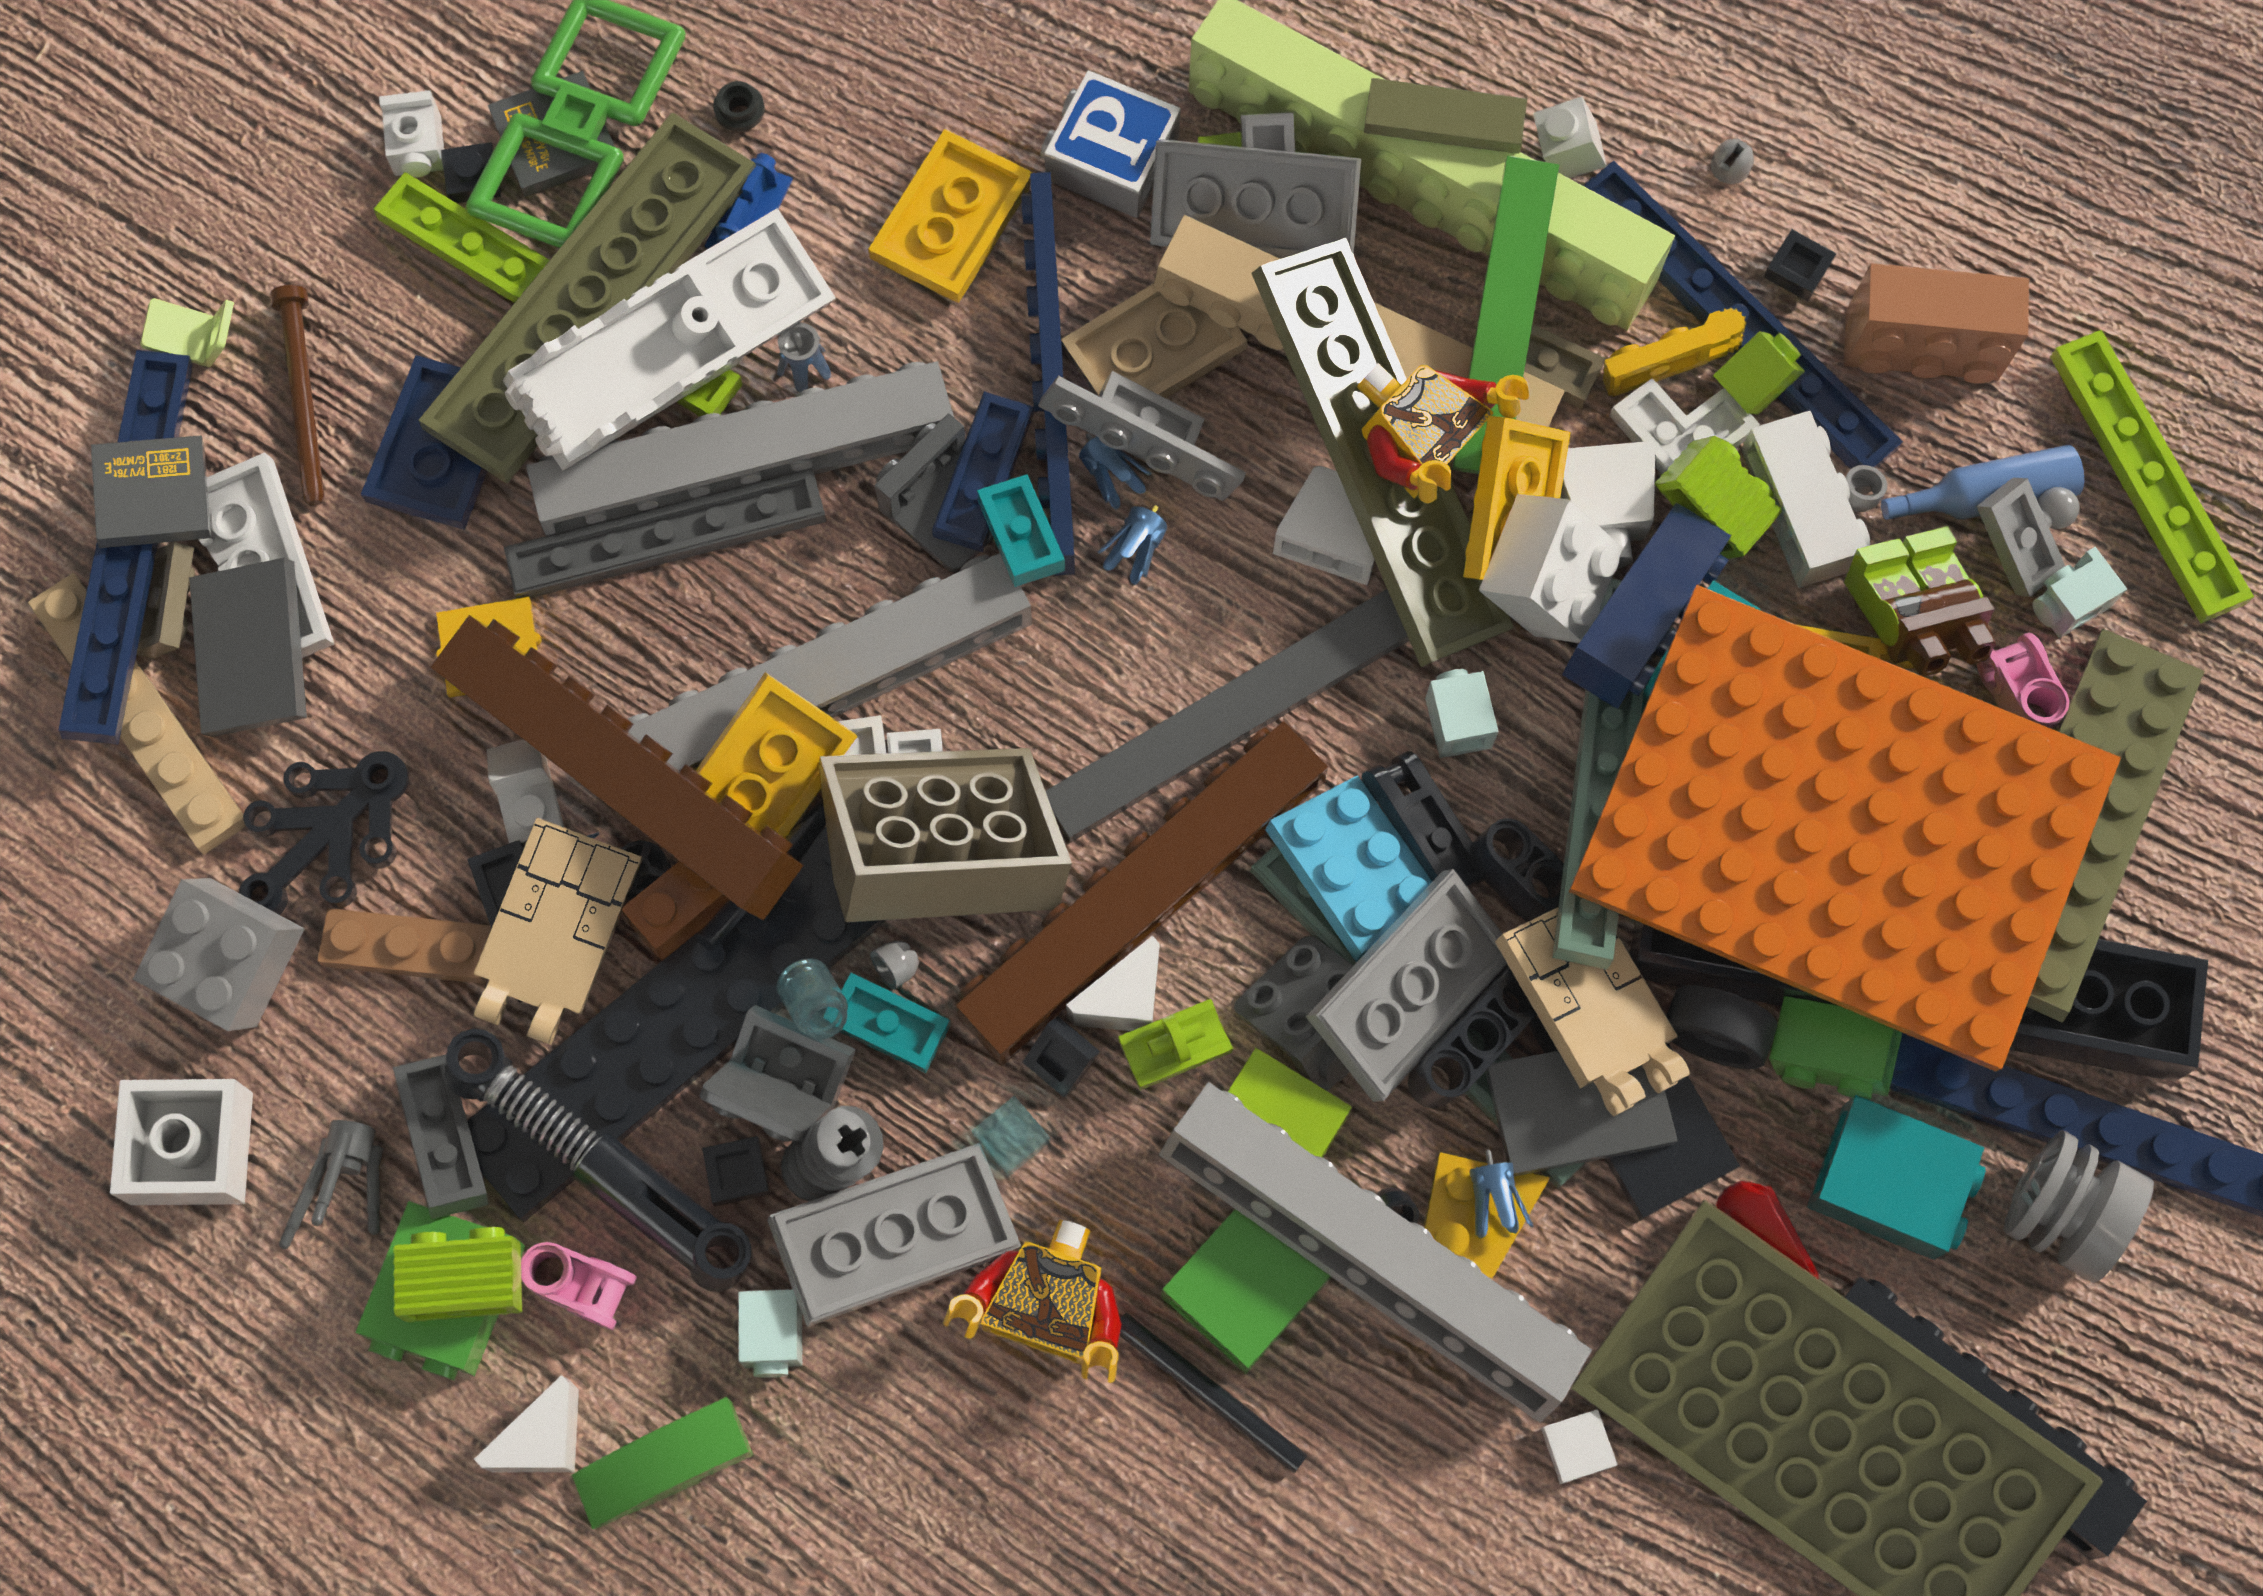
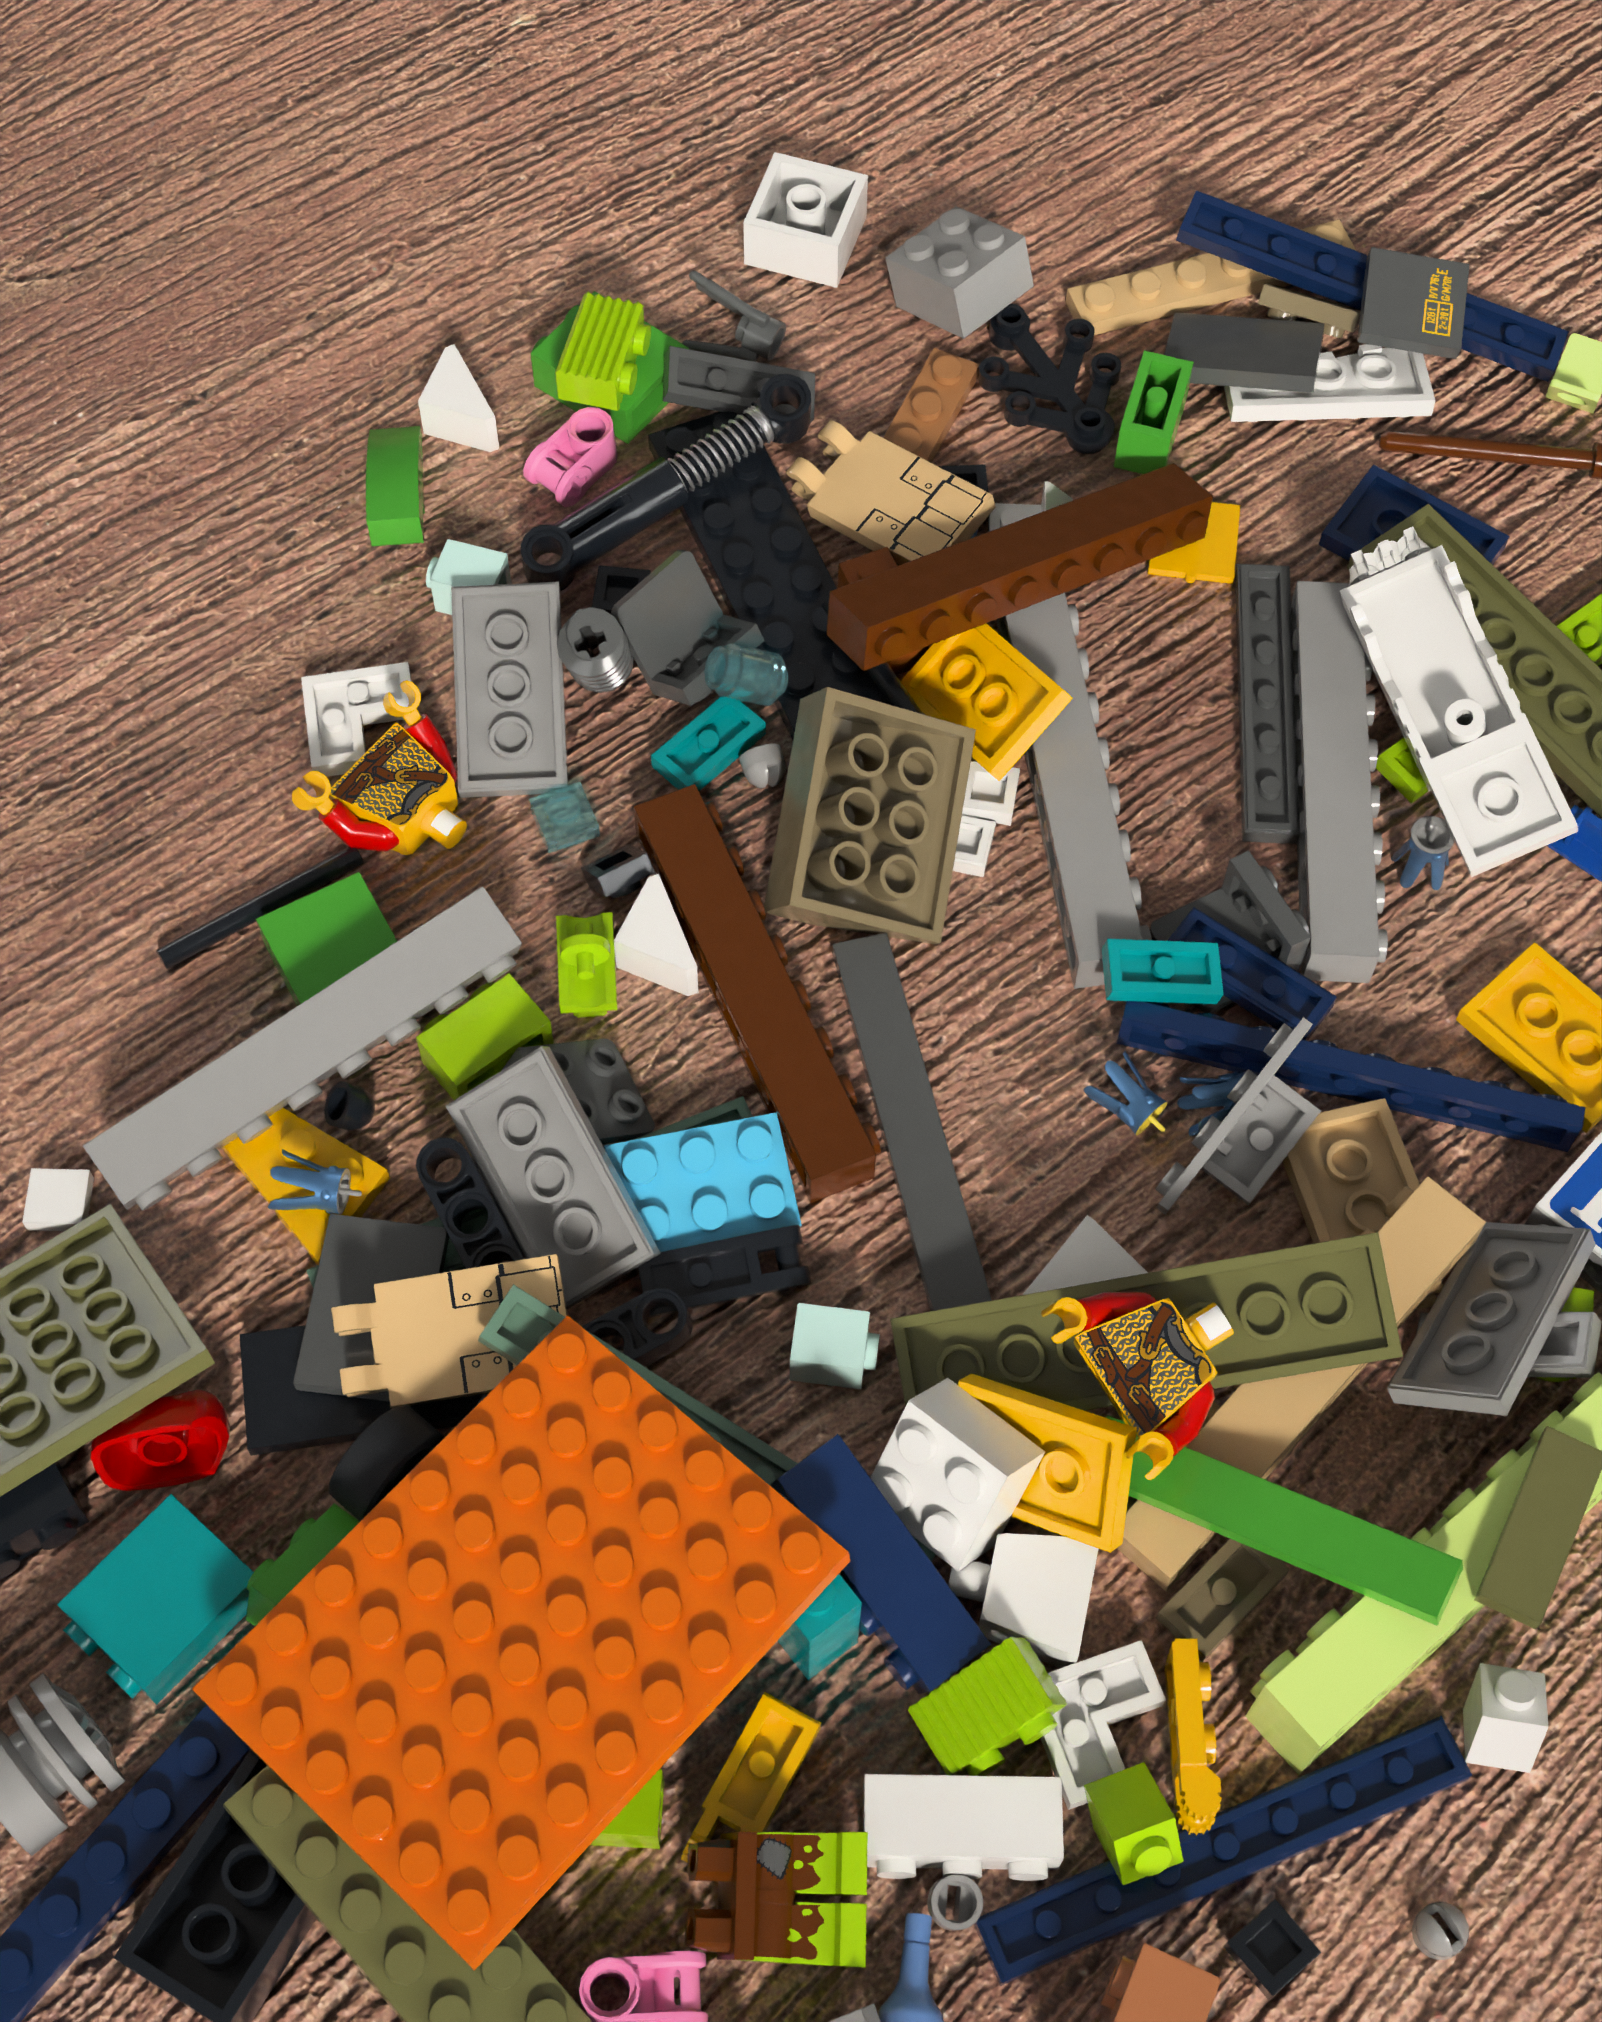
camera: 110 degrees right, 10 degrees down
(360, 709) = (1153, 413): none -> bright green brick
(961, 1404) = (341, 705): none -> white plate

